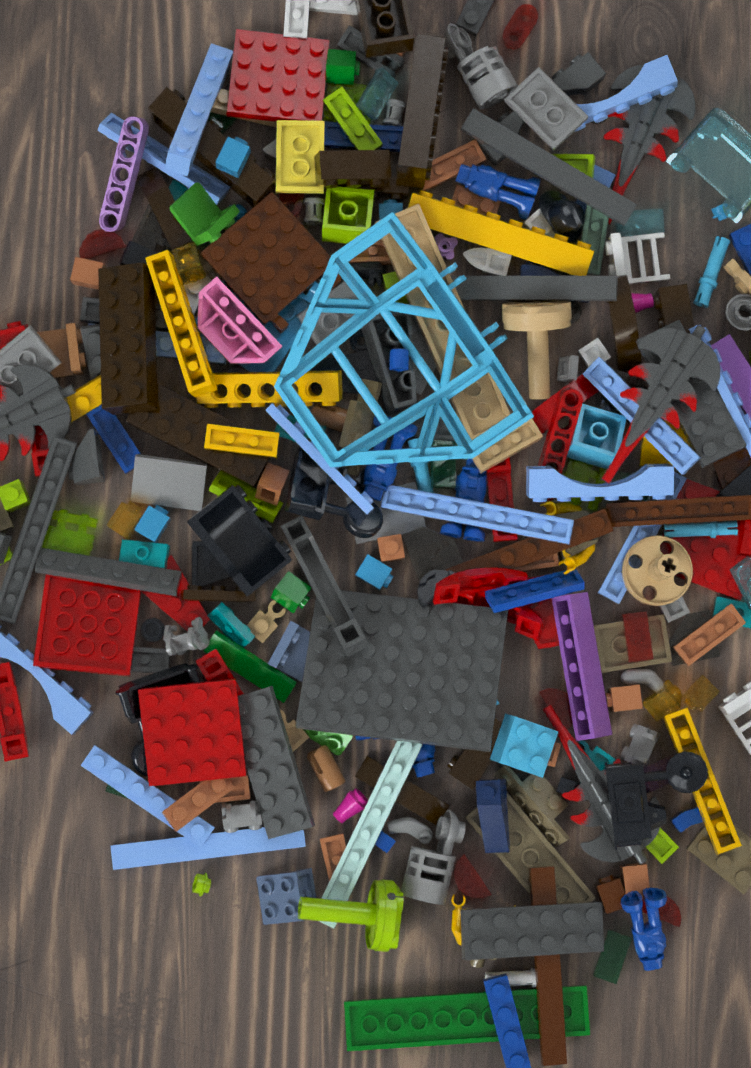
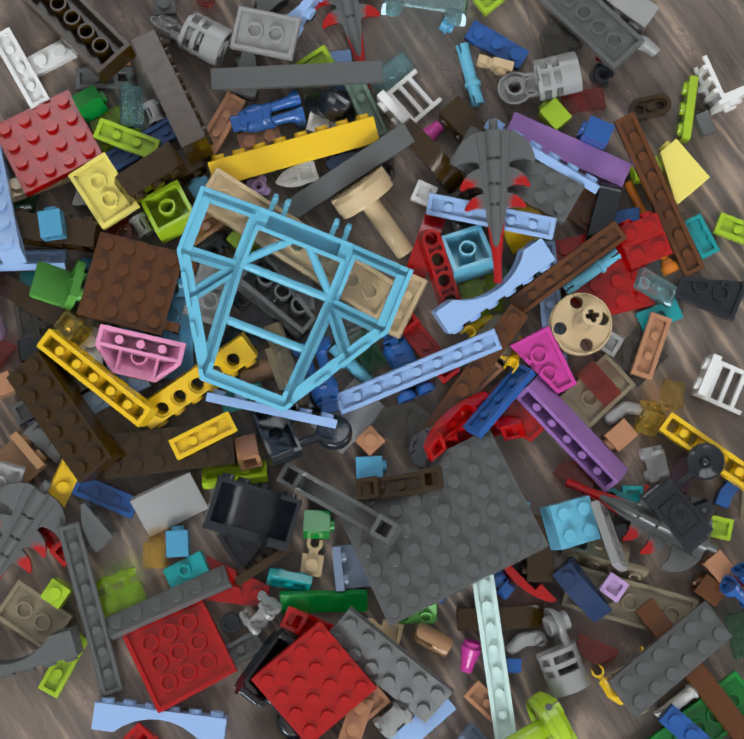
camera: 30 degrees left, 0 degrees up
(391, 607) = (400, 485): none -> dark brown slope
(399, 360) = (281, 295): blue hose -> none
(453, 791) = (538, 591): none -> red slope
(524, 832) = (613, 587): none -> lavender plate
(552, 781) = (609, 536): none -> light grey tile
(567, 368) = (411, 217): light grey tile -> none
(603, 578) = (545, 358): none -> dark pink wing

